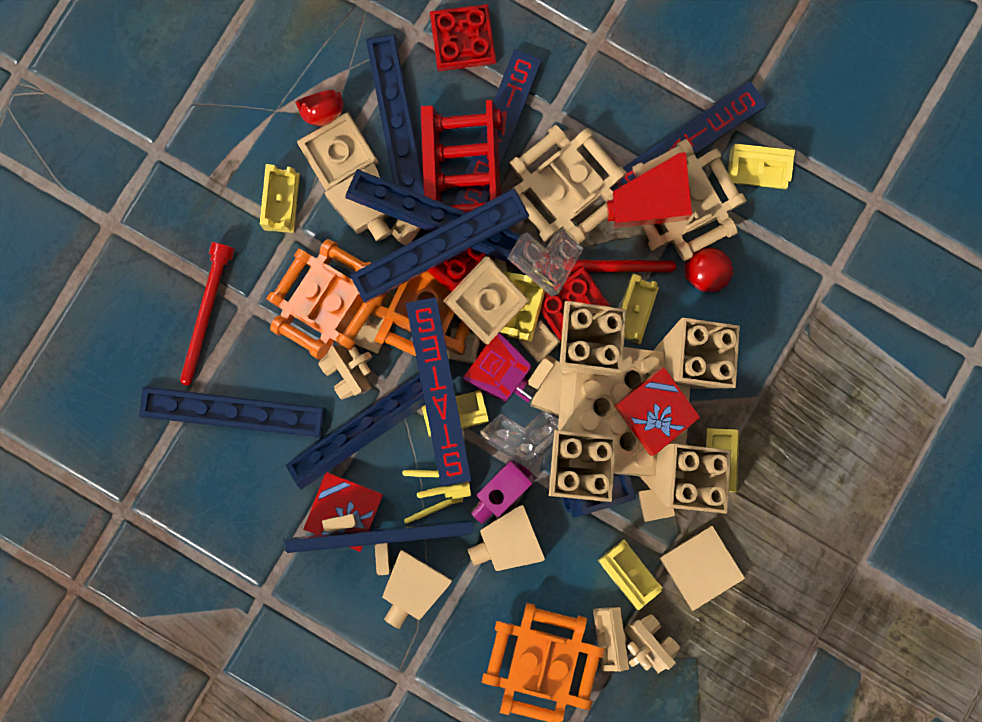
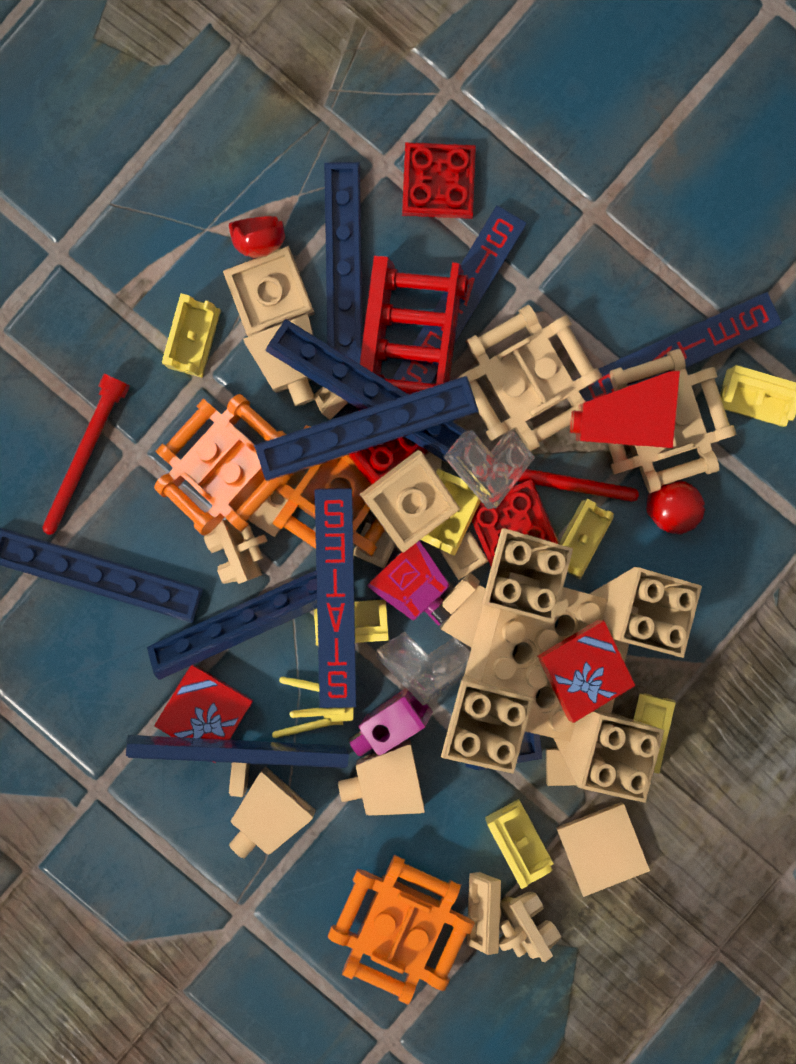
camera: 10 degrees right, 5 degrees up
(339, 523) = (195, 729): tan tile -> none

